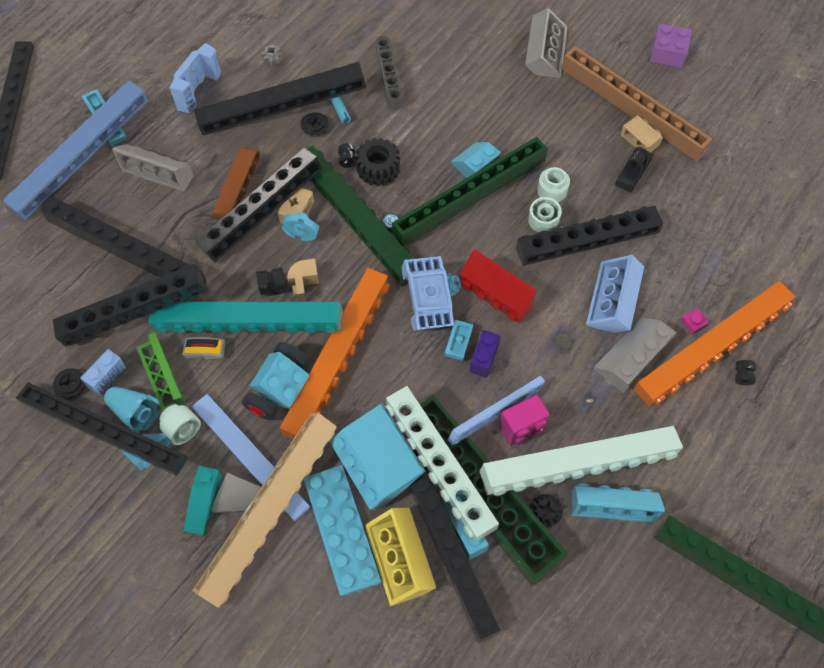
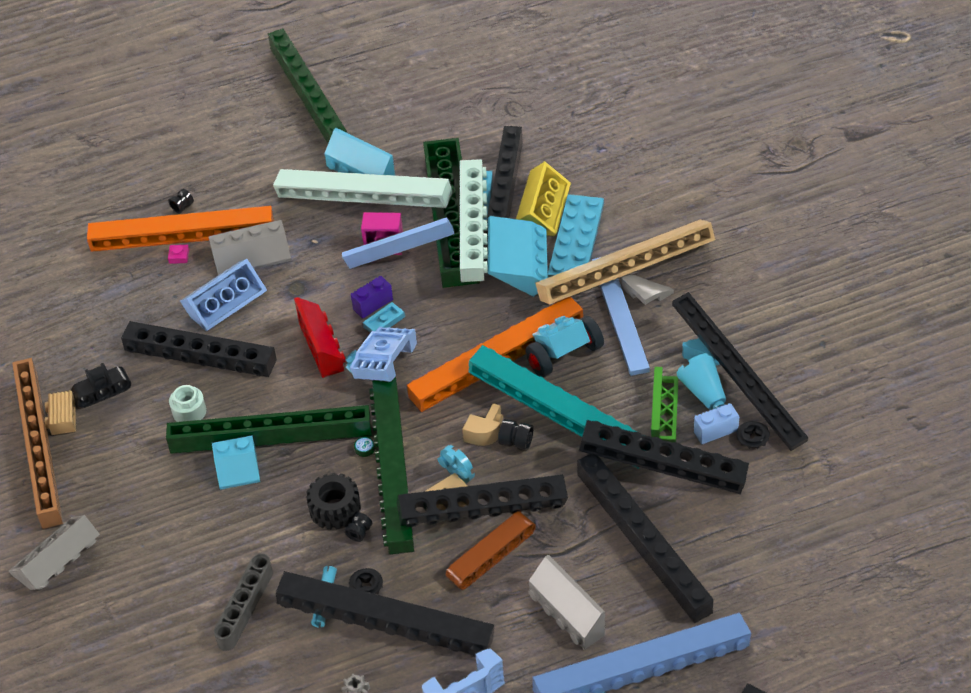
camera: 145 degrees left, 15 degrees down
(179, 424) = (667, 350): light aqua piece -> none
(202, 497) = (662, 301): teal slope -> none
(204, 347) = (613, 407): slope -> none
(544, 214) = (223, 375): light aqua piece -> none

